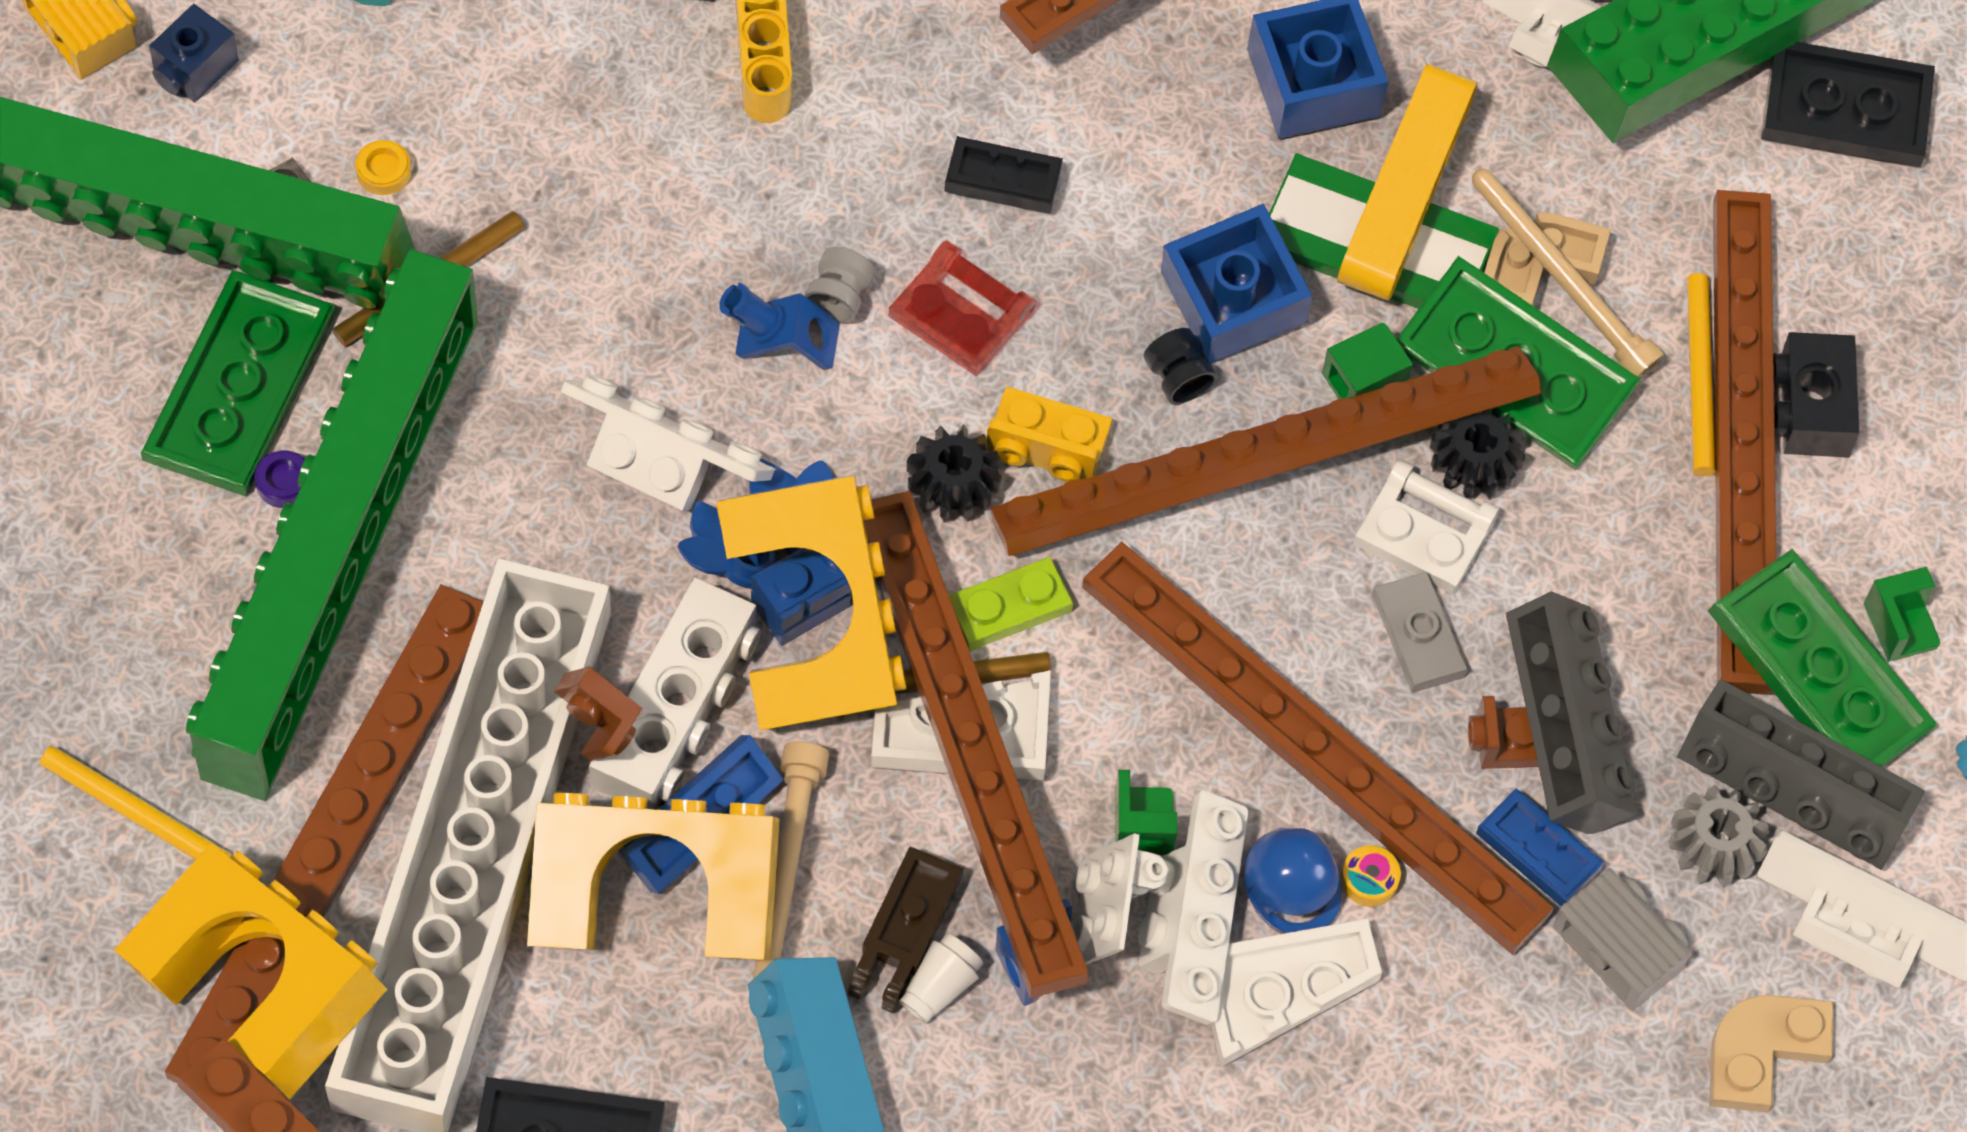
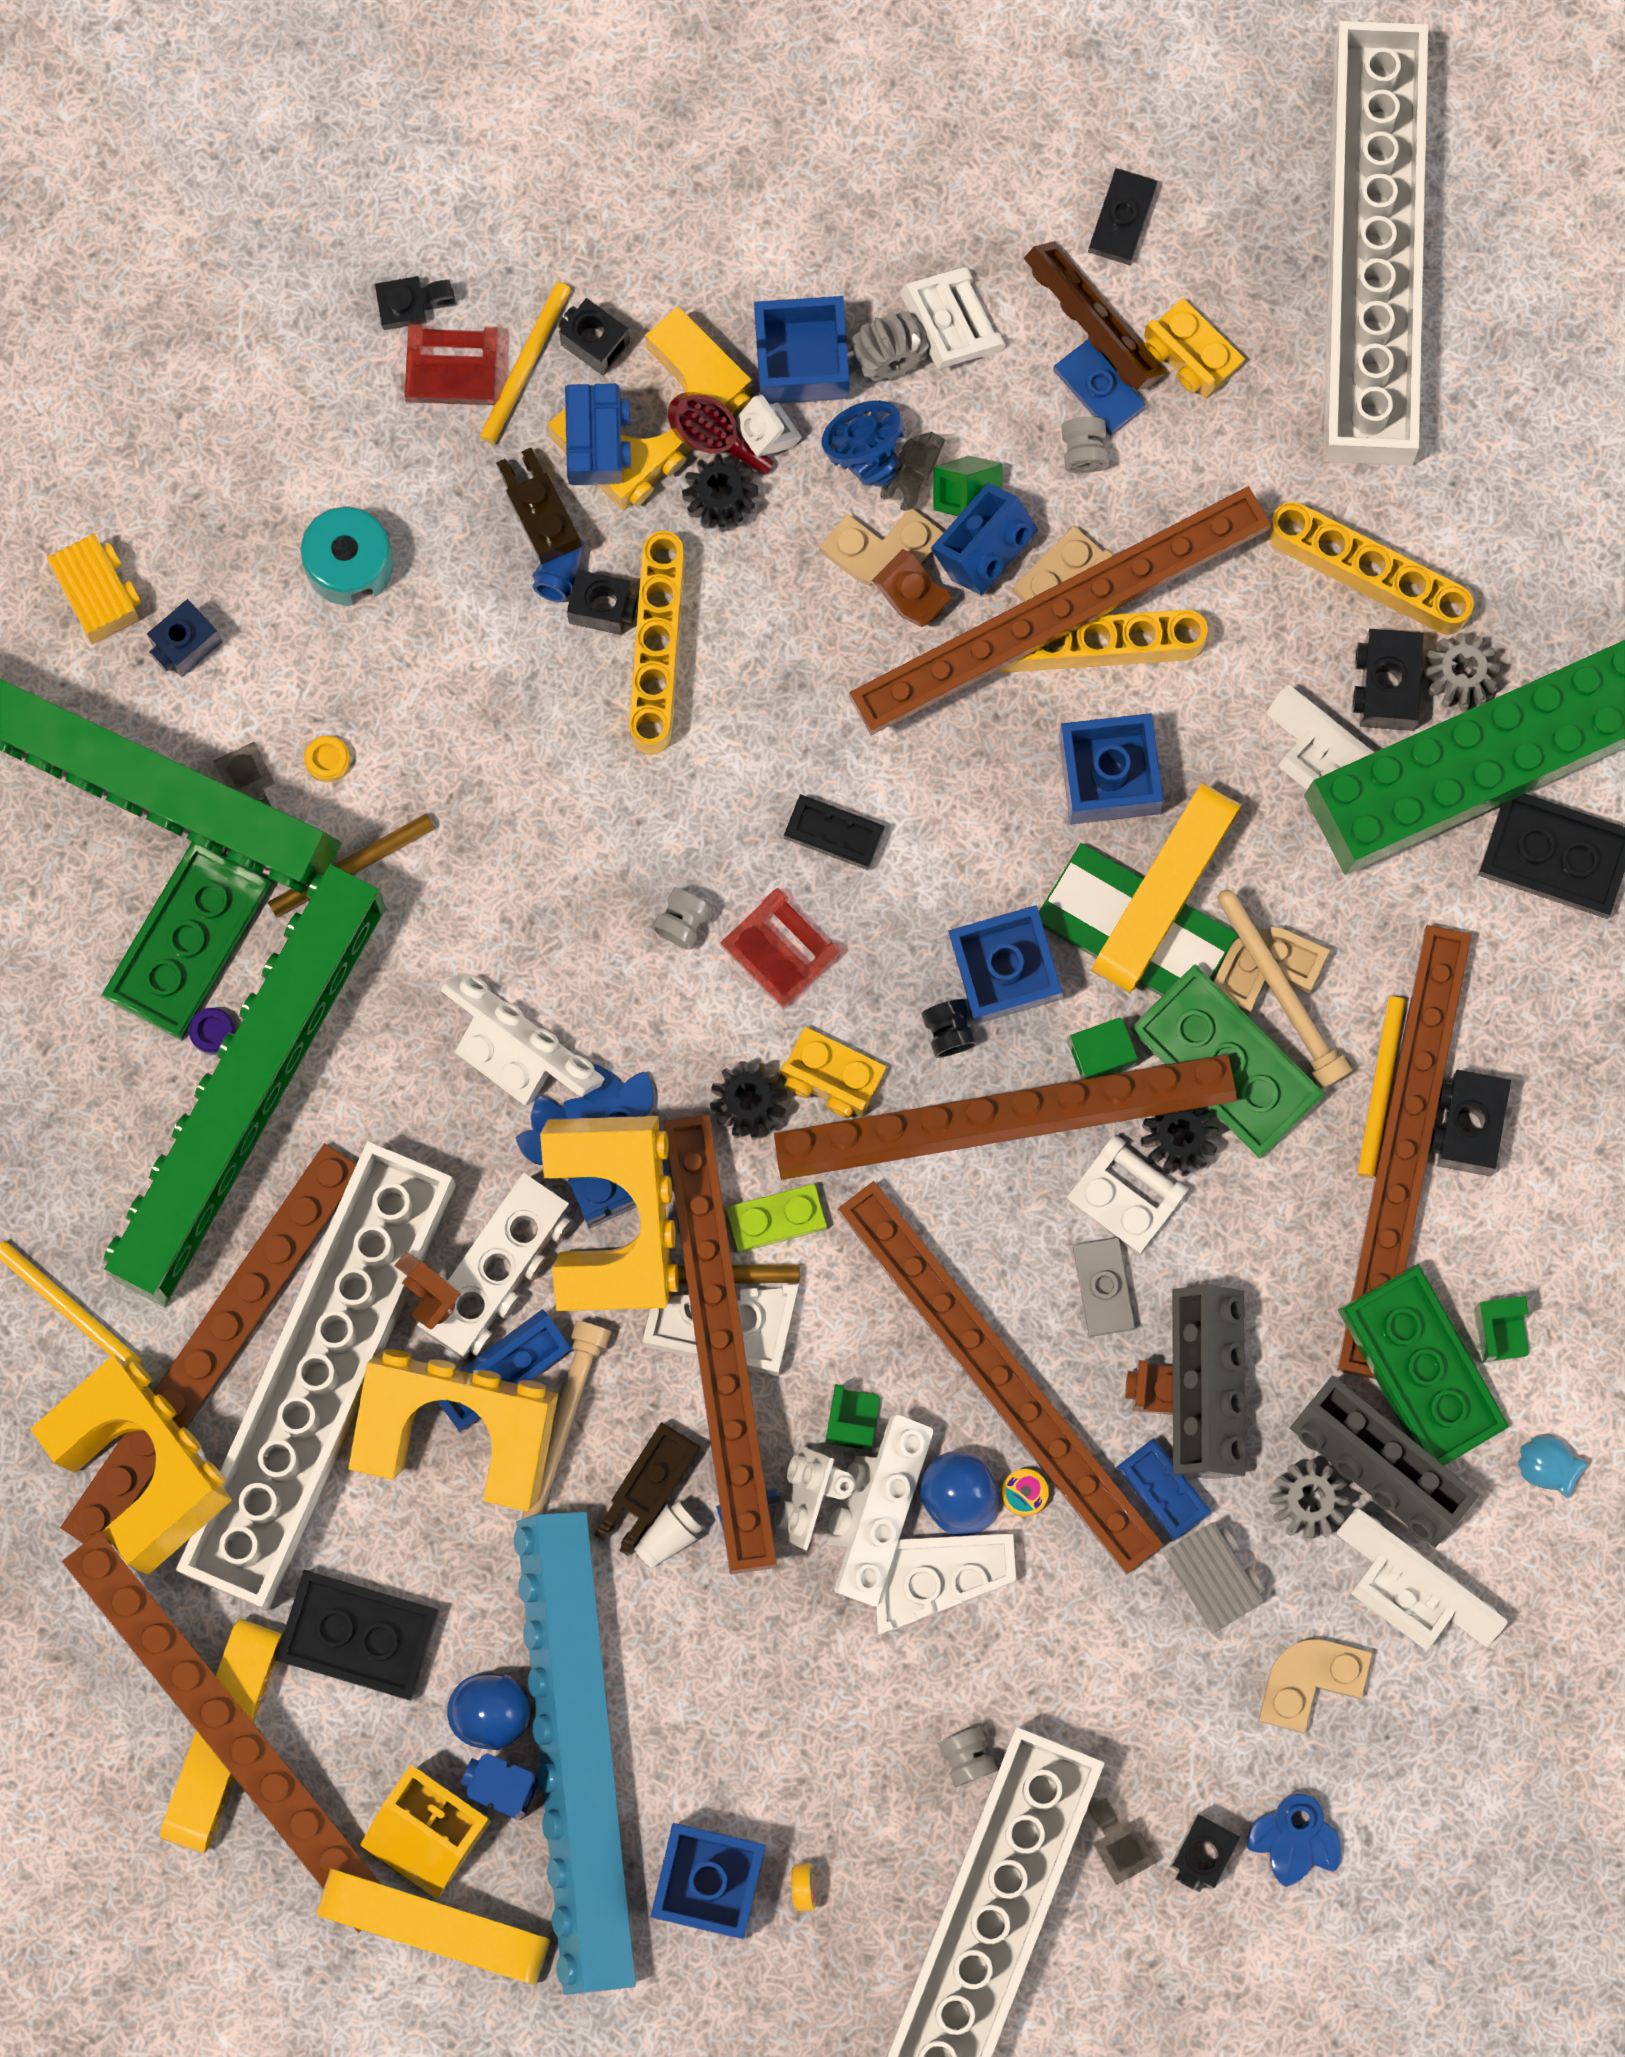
camera: 15 degrees right, 15 degrees up
(779, 325) = (628, 950): blue bracket -> none

